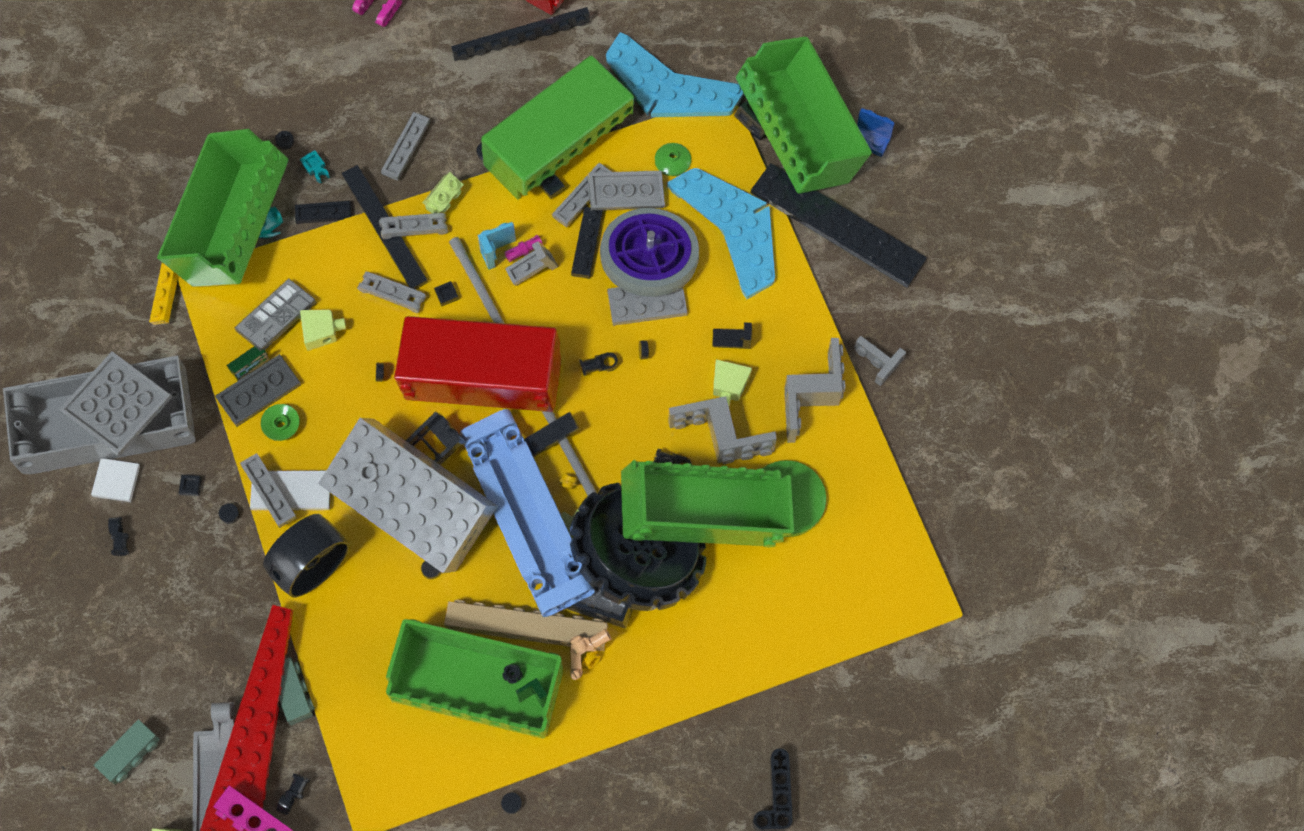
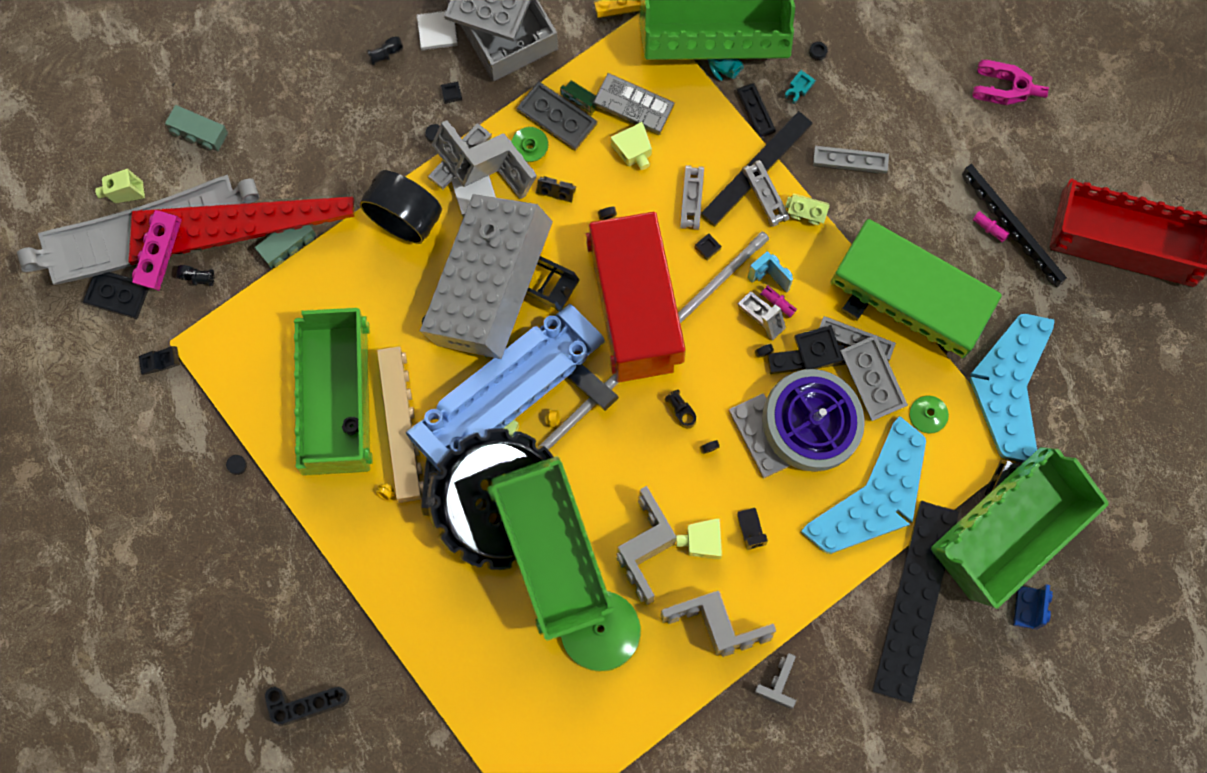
camera: 75 degrees right, 5 degrees up
(283, 480) = (483, 159): none -> light grey bracket
(339, 407) = (562, 191): none -> black hinge
(515, 53) = (991, 226): none -> dark pink pin
(532, 688) = (336, 449): dark green panel -> none
(567, 275) = (763, 351): none -> black tile
(582, 227) = (818, 348): none -> black tile
(582, 644) = (390, 478): light nougat pin -> none
(663, 457) = (602, 510): black connector -> none

